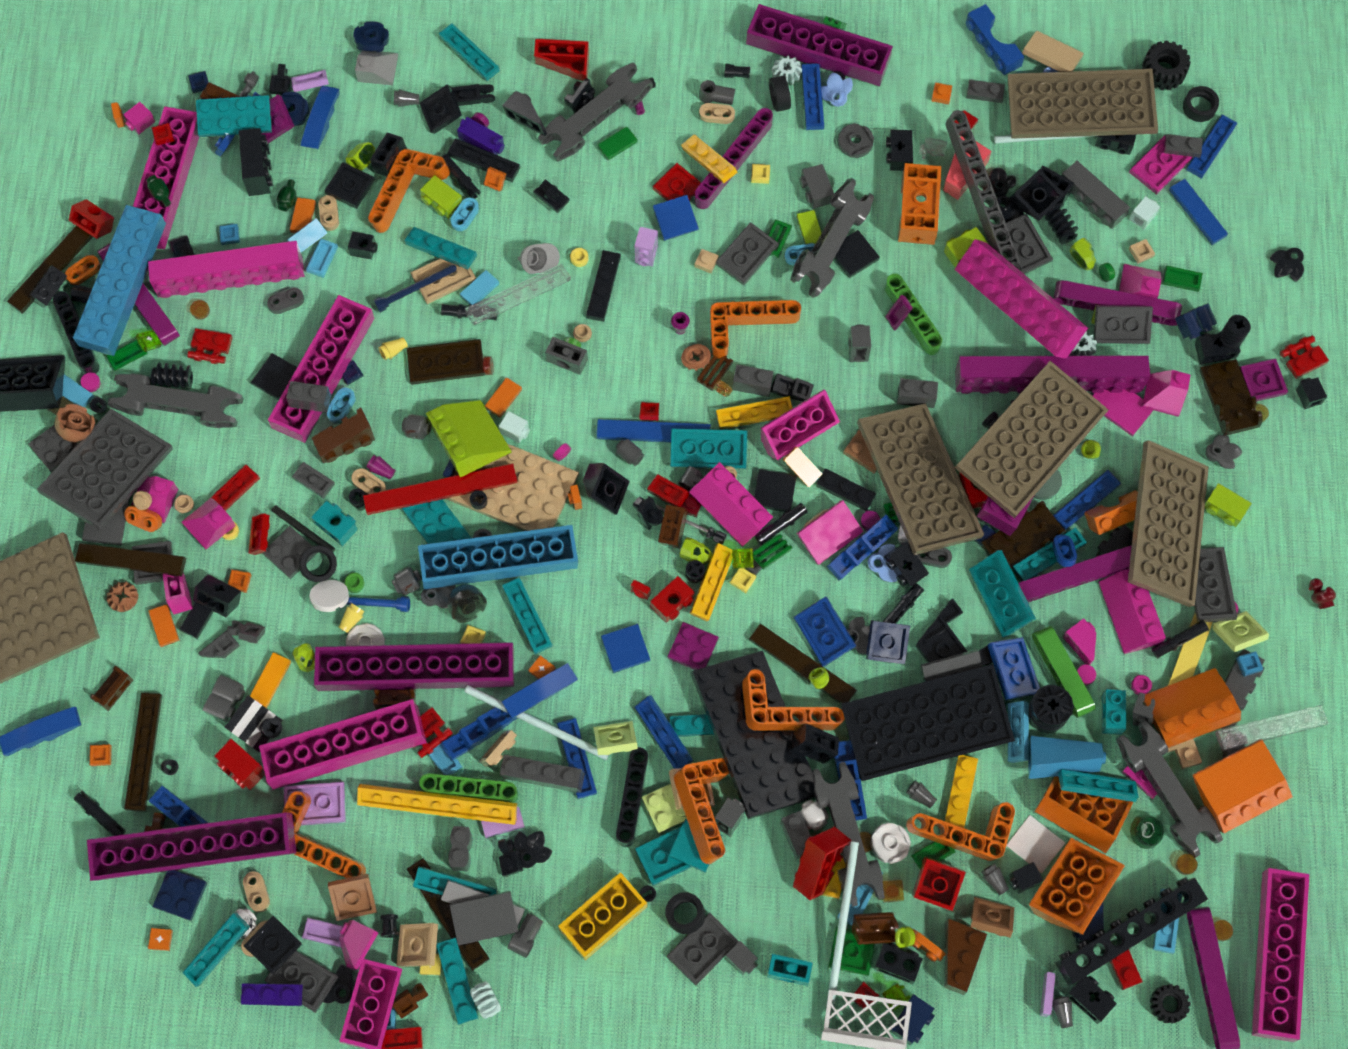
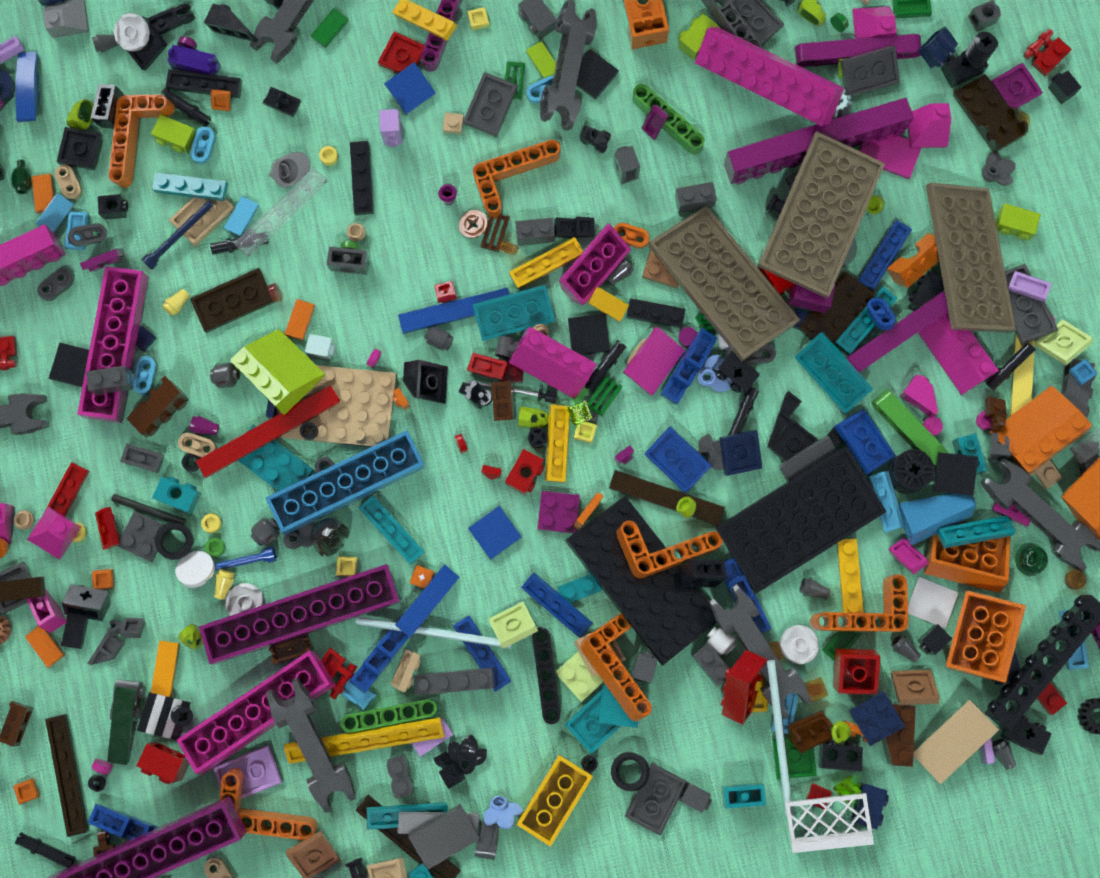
camera: 15 degrees left, 10 degrees up
(179, 753) = (102, 766): none -> dark pink tile
(211, 718) = (121, 725): none -> dark green tile
(329, 263) = (86, 234): none -> dark grey plate
(330, 290) = (97, 262): none -> magenta plate
(358, 559) = (211, 523): none -> light yellow tile
(381, 754) = (297, 716): none -> dark grey piece
(432, 95) = (131, 32): none -> white tile
(547, 913) = (502, 812): none -> light blue plate
(619, 554) = (461, 444): none -> red tile
(723, 652) = (588, 511): none -> orange tile
(773, 612) = (624, 456): none -> magenta plate
(822, 441) = (620, 272): none -> dark grey cone
(838, 311) = (595, 137): none -> black plate
(845, 410) = (631, 234): none -> orange plate
(944, 933) = (877, 718): none -> dark blue plate
(1017, 982) = (955, 741): none -> tan tile
(1024, 789) = (908, 556): none -> dark pink tile
(1093, 722) = (955, 473): none -> black tile
(1154, 678) = (996, 410): none -> reddish brown plate
(1220, 568) = (1029, 286): none -> lavender tile
(1249, 311) = (979, 20): none -> dark grey brick

